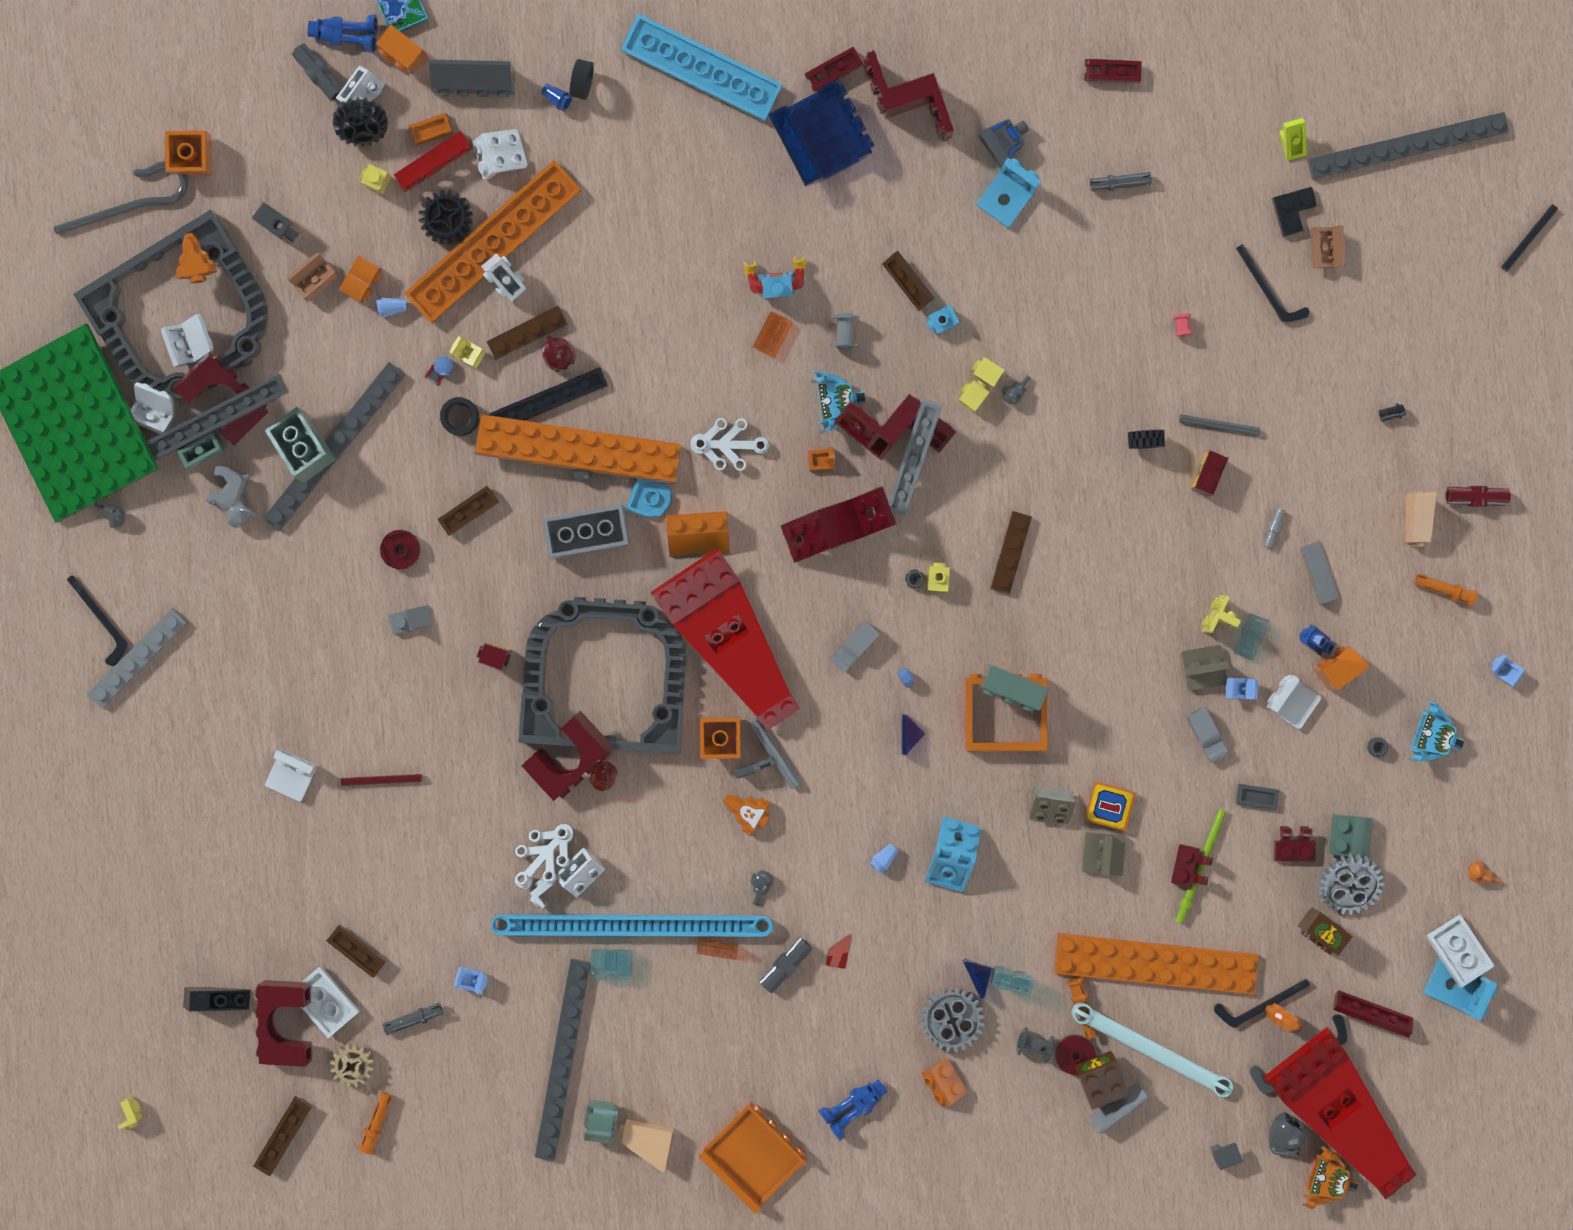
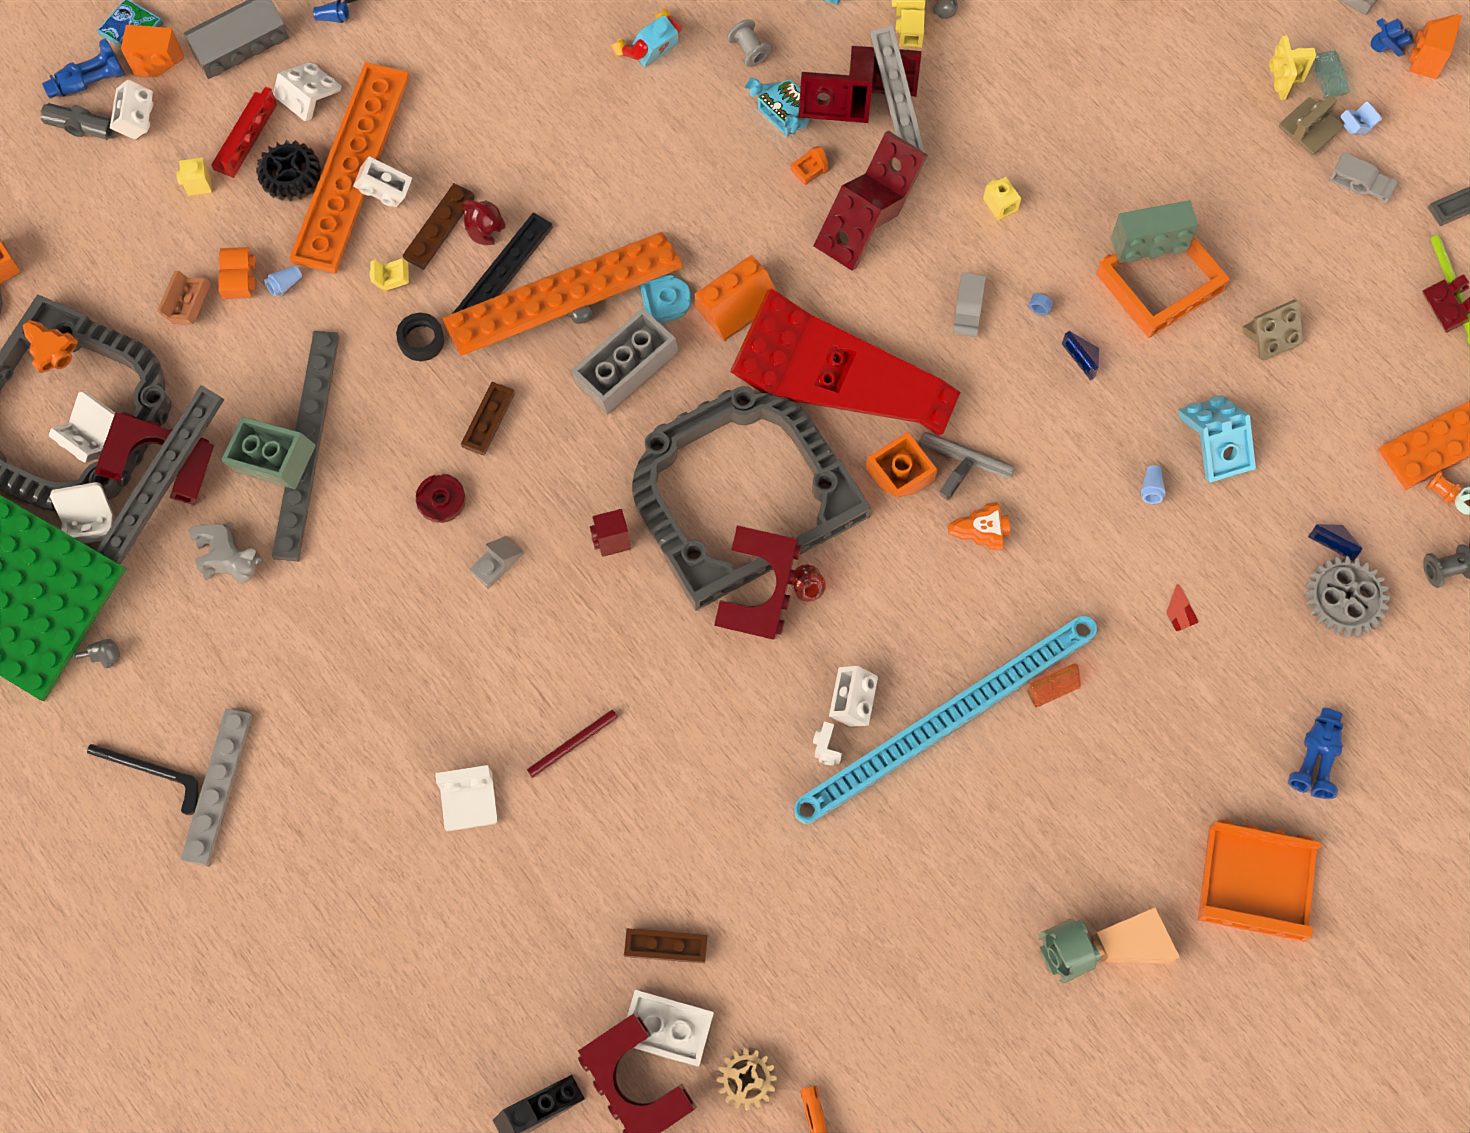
camera: 30 degrees left, 20 degrees down
(201, 450) = (162, 526): sand green brick -> none
(268, 217) = (111, 269): dark grey torso -> none
(361, 127) = (148, 120): black gear -> none
(421, 1015) = (783, 975): dark grey pin -> none
(431, 129) = (224, 108): orange tile -> none
(433, 377) = (369, 318): sticker -> none
(443, 366) = (373, 302): medium blue tile -> none
(470, 980) = (815, 891): light blue bracket -> none
(545, 853) = (801, 703): white plant -> none
(562, 1059) = (978, 918): dark grey plate -> none
(611, 963) = (954, 772): clear light blue brick -> none
(725, 444) = (708, 207): white plant -> none
(761, 882) = (1050, 589): dark grey piece -> none
(772, 334) = (682, 90): clear orange slope -> none
(785, 965) = (1137, 654): dark grey piece -> none
(914, 584) = (979, 208): dark grey plate -> none
(944, 1083) = (1391, 668): orange bracket -> none
(1005, 979) = (1374, 515): clear light blue brick -> none
(1011, 552) = (1051, 138): reddish brown plate -> none
(1104, 854) = (1359, 344): dark tan bracket -> none
(1110, 806) = (1329, 298): slope -> none
(1293, 701) = (1415, 102): white bracket -> none

